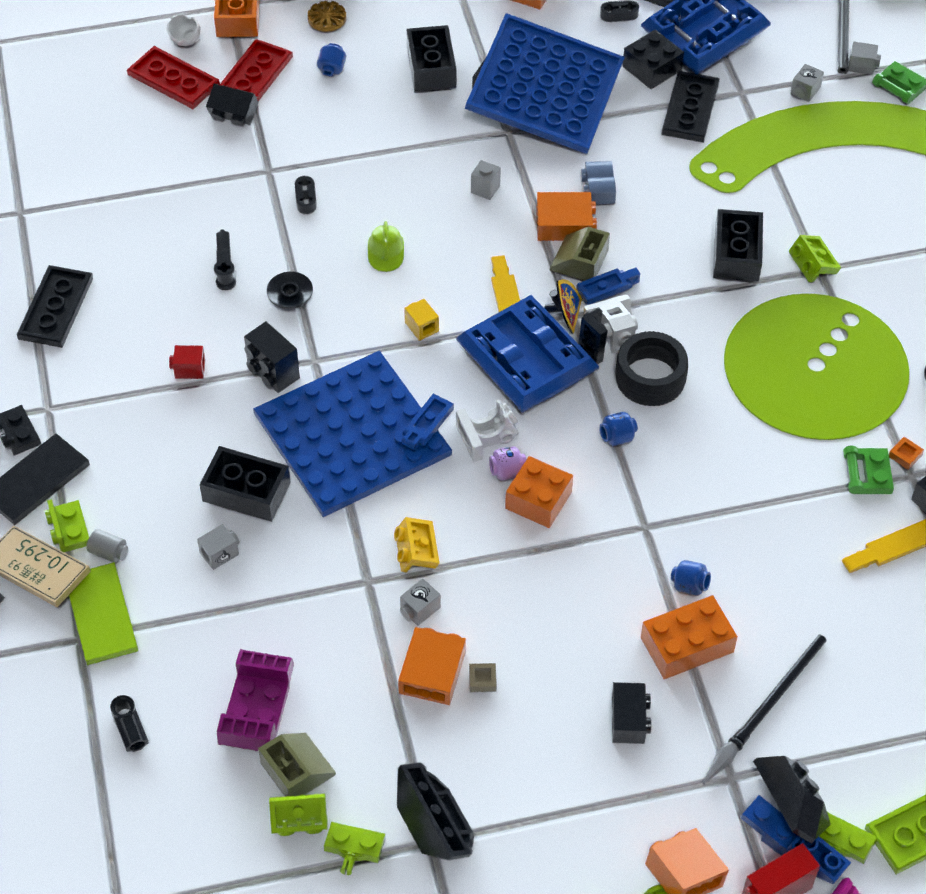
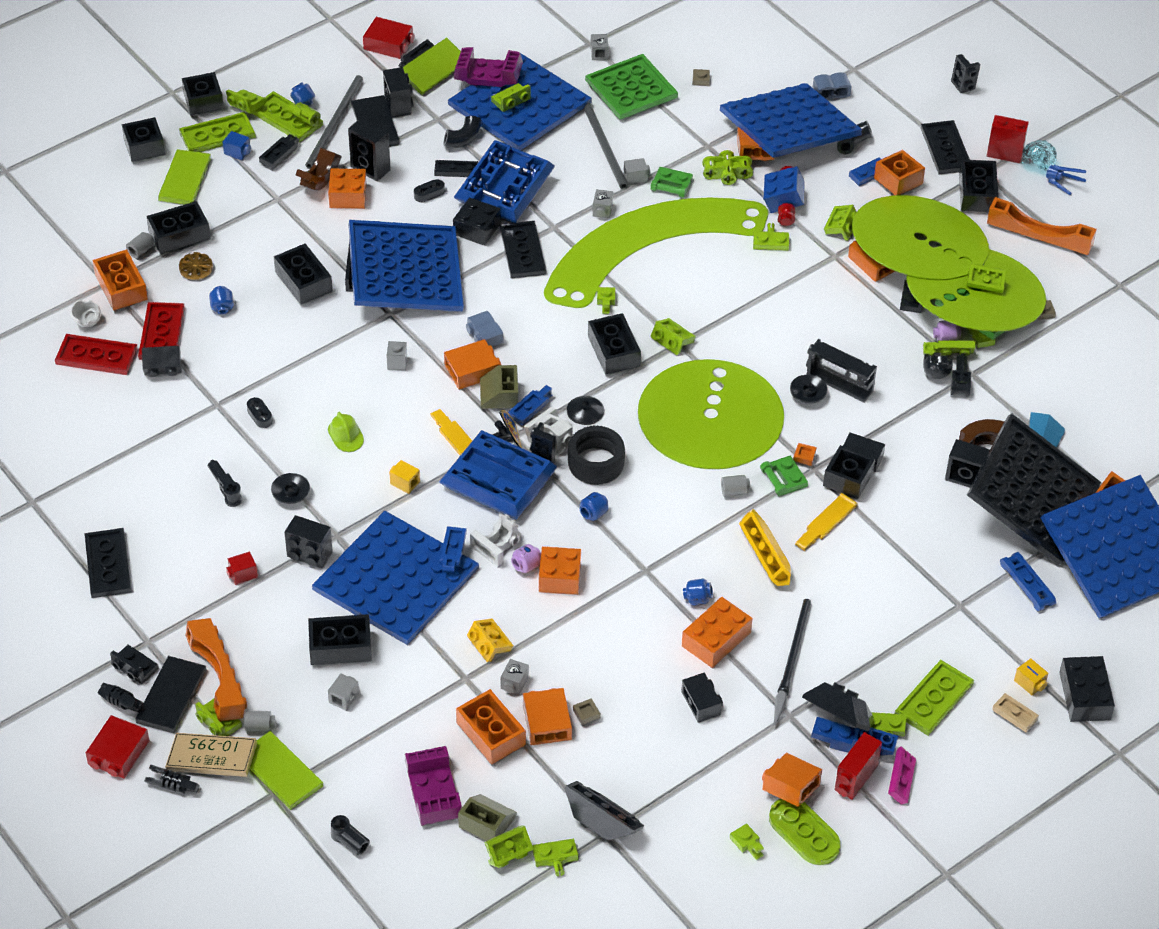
camera: 25 degrees left, 5 degrees down
(82, 505) = (204, 640): none -> orange arch
(358, 653) = (490, 726): none -> orange brick
(669, 311) = (585, 410): none -> black dish
(758, 189) = (605, 297): none -> lime plate
(801, 461) = (735, 485): none -> light grey brick
(801, 554) = (766, 548): none -> yellow brick

